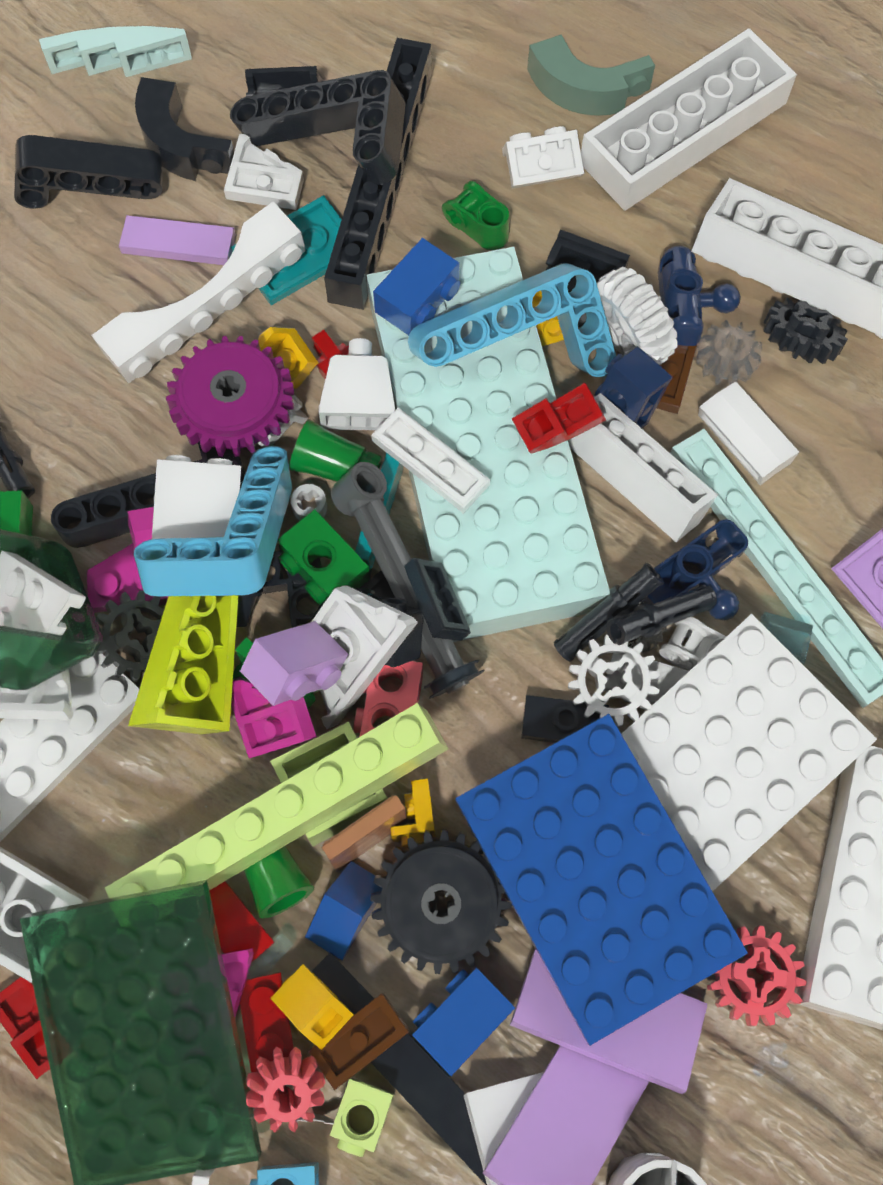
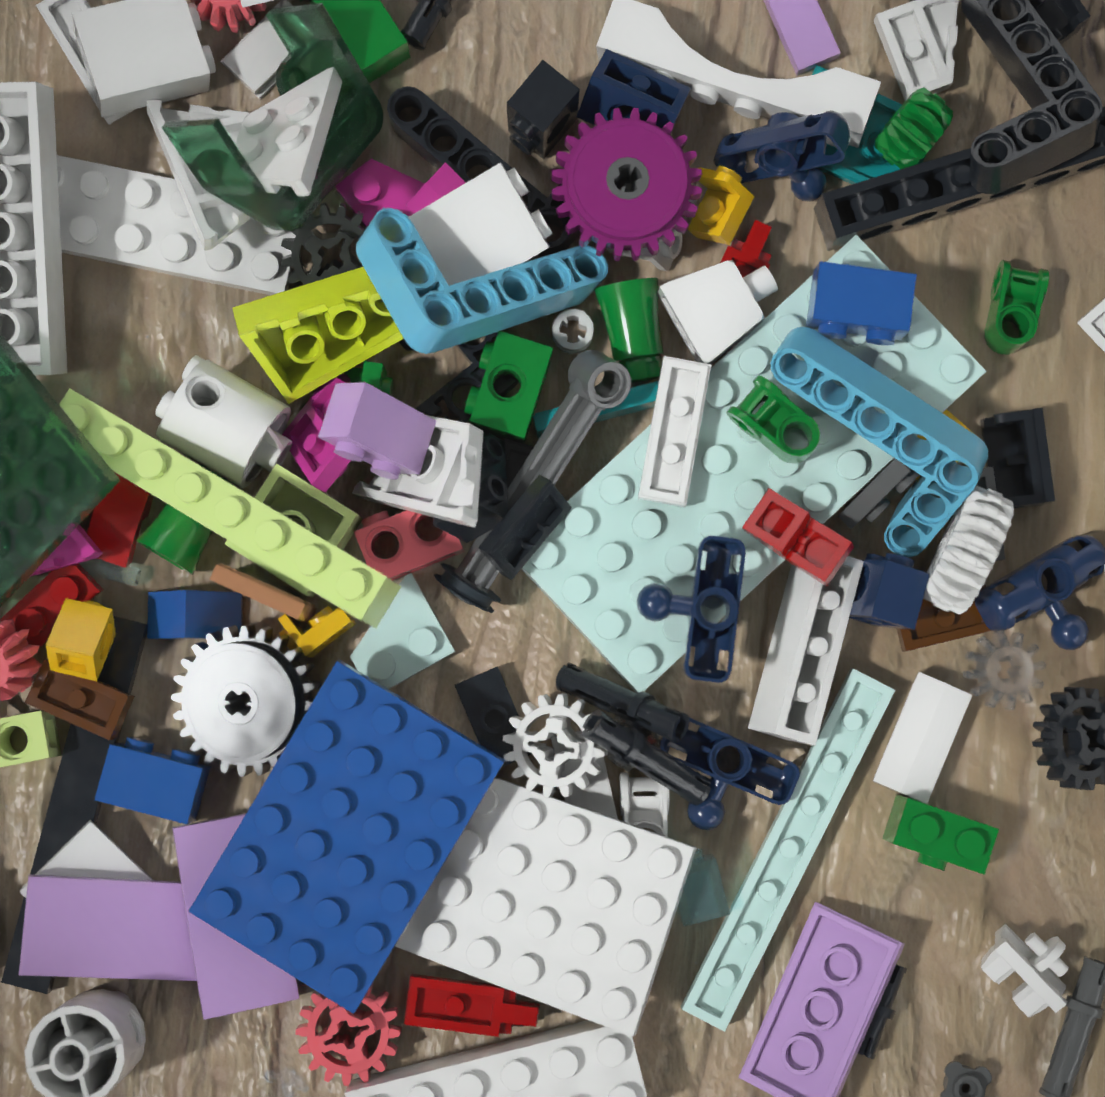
camera: 55 degrees right, 15 degrees up
(137, 426) = (542, 110): none -> black brick
(155, 364) = (628, 85): none -> dark blue brick
(209, 783) = (224, 423): none -> white cylinder
(277, 284) = (788, 148): none -> dark blue piece
(318, 202) = (914, 128): none -> green gear
(464, 385) = (773, 419): none -> green piece
(469, 756) = (404, 640): none -> light aqua wing
(552, 336) = (872, 499): none -> dark grey plate
(593, 517) = (658, 602): none -> dark blue piece
(782, 870) = (466, 1006): none -> red hinge
(826, 455) = (940, 835): none -> green brick

